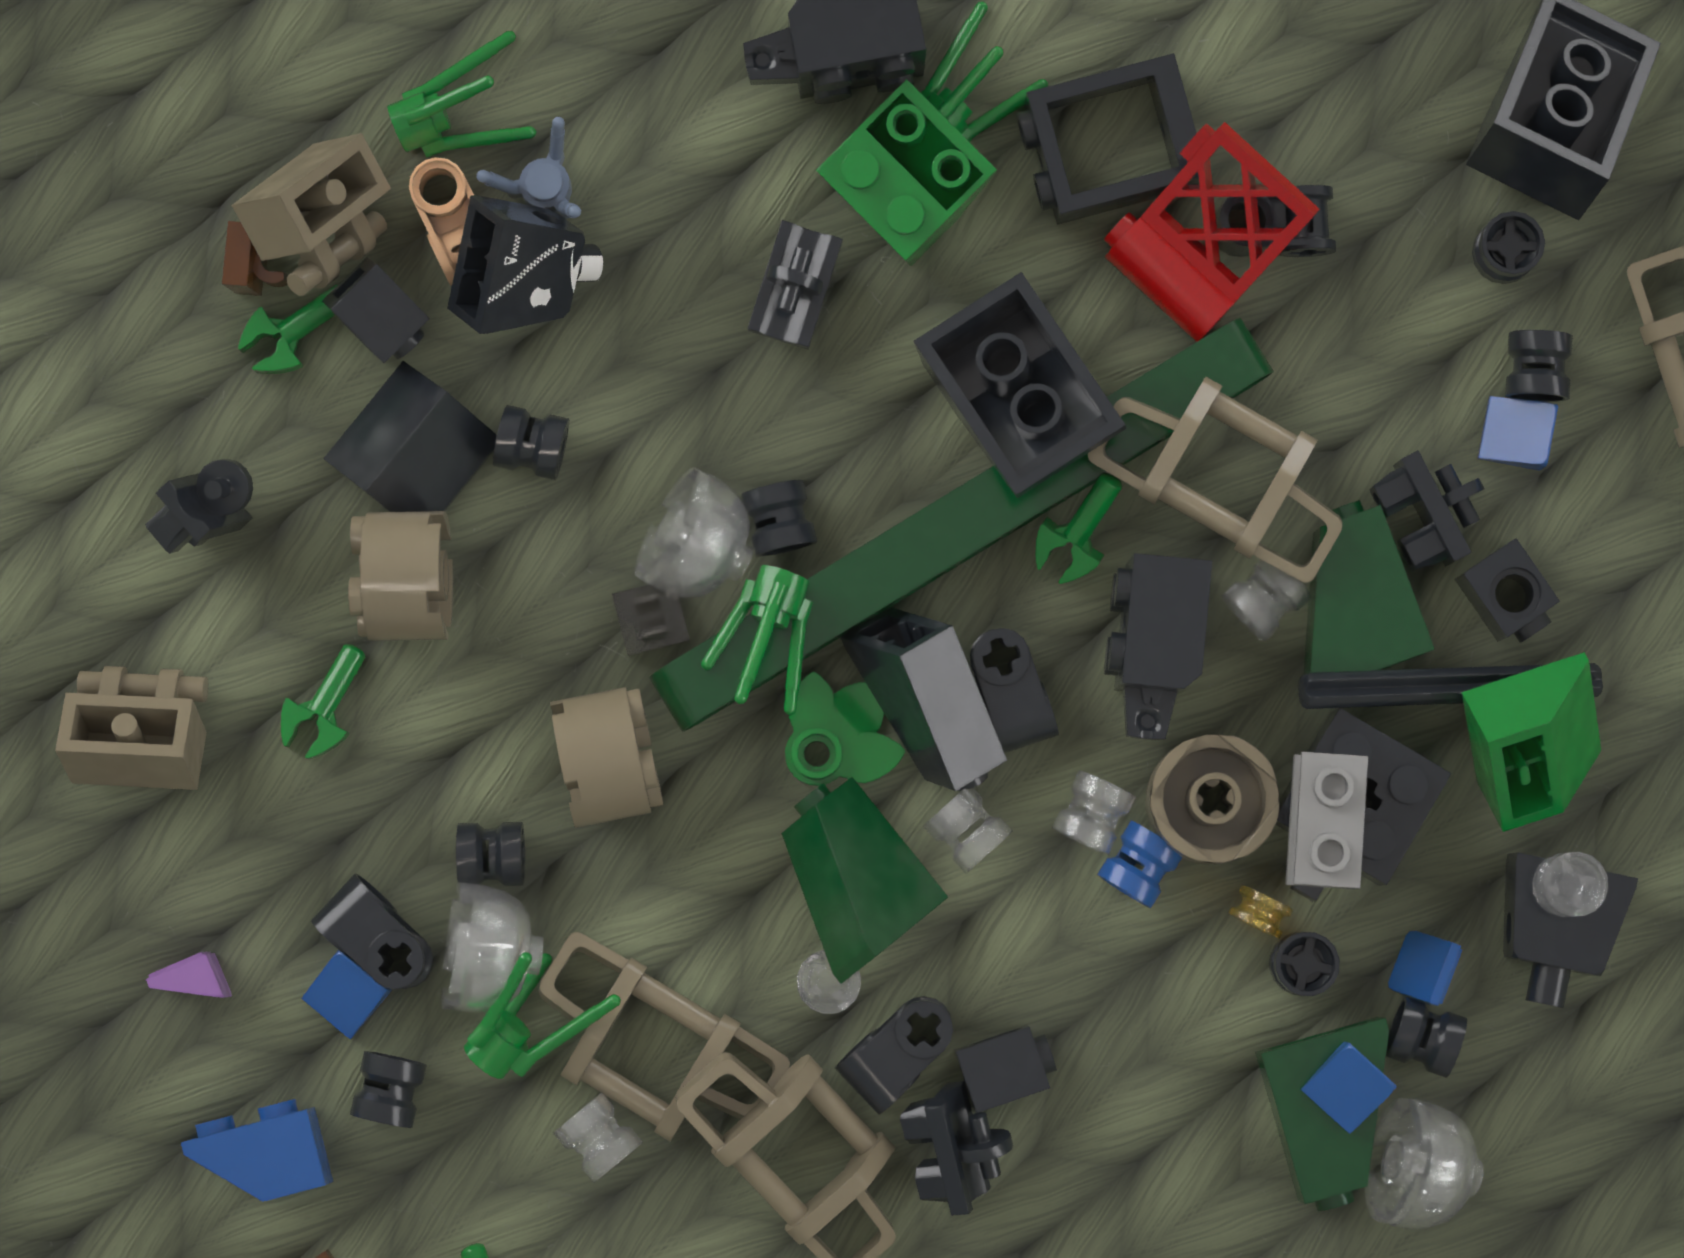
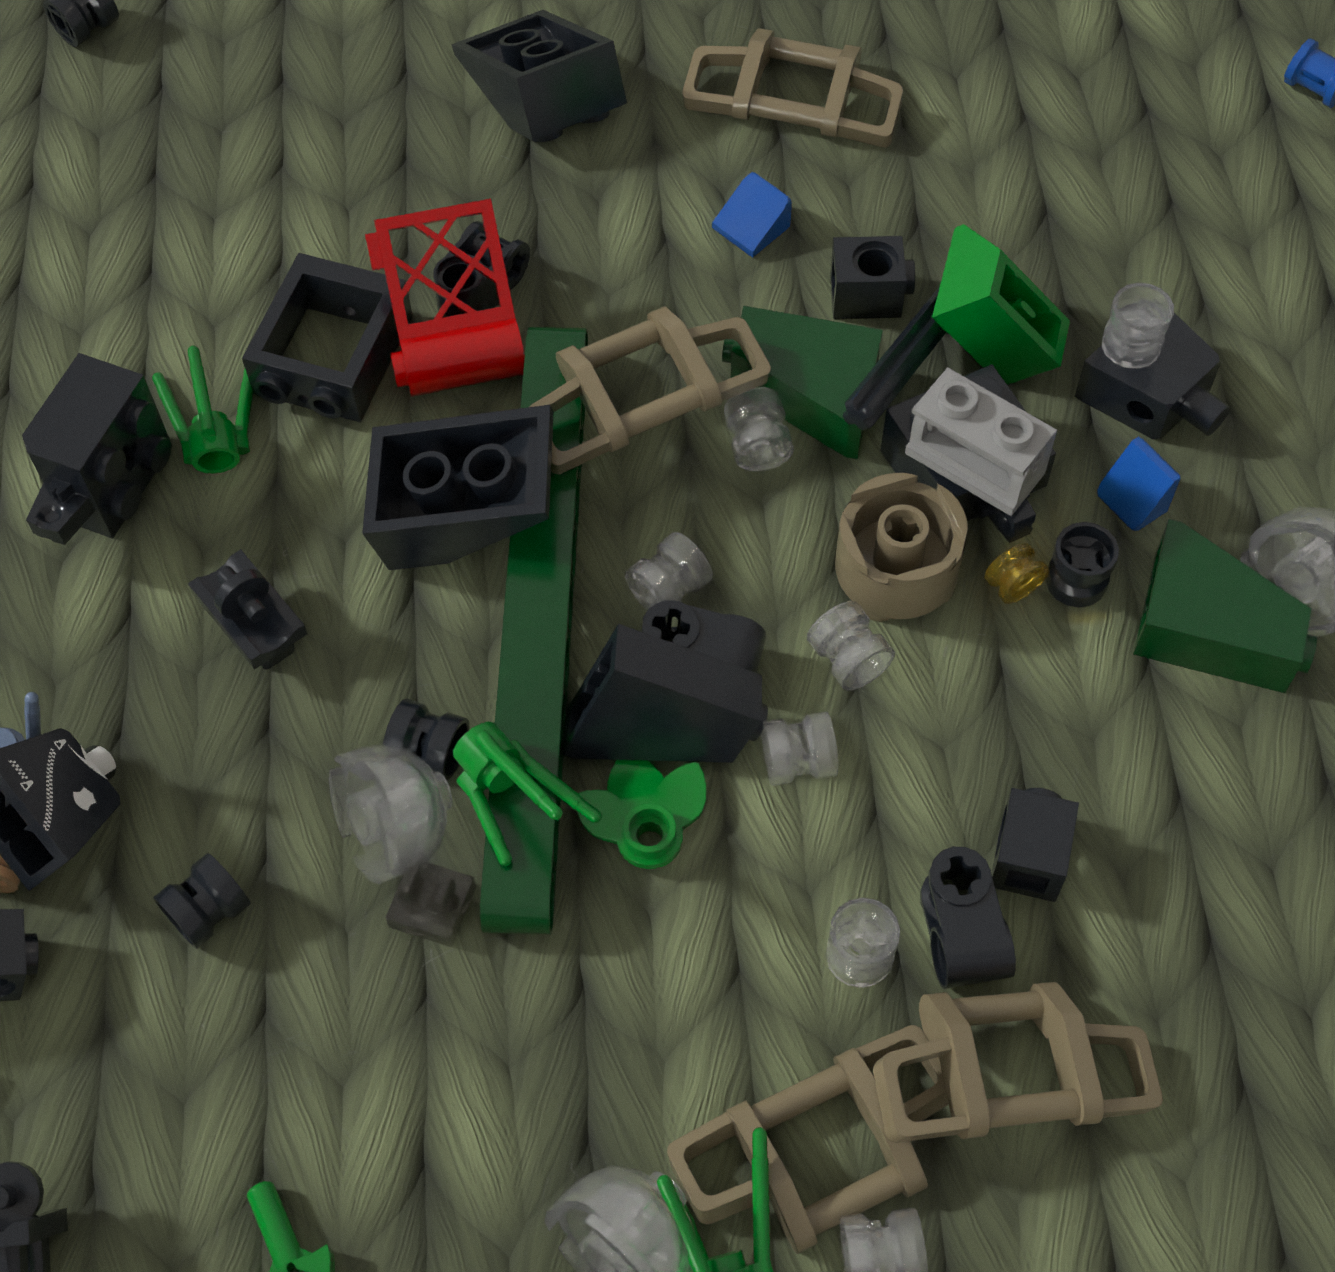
camera: 55 degrees left, 25 degrees down
(403, 576) = (223, 1080): dark tan brick -> none
(412, 445) = (124, 1011): black slope -> none
(505, 853) = (539, 1175): black wheel -> none
(602, 757) = (523, 999): dark tan brick -> none
(856, 876) = (783, 853): dark green slope -> none
(907, 172) = (230, 478): green slope -> none
(963, 1147) = (1112, 941): black hips -> none
(1048, 614) = (670, 573): none -> clear wheel
(1079, 530) = (608, 523): green bar -> none
(1146, 850) = (919, 636): blue wheel -> none
(1158, 638) = (735, 500): black hinge -> none
(1348, 1087) = (1216, 564): blue slope -> none
(1415, 486) = (769, 286): black hips -> none
(1426, 1037) = (1206, 506): black wheel -> none
(1516, 239) = (613, 149): black wheel -> none
(1539, 354) = (710, 173): black wheel -> none

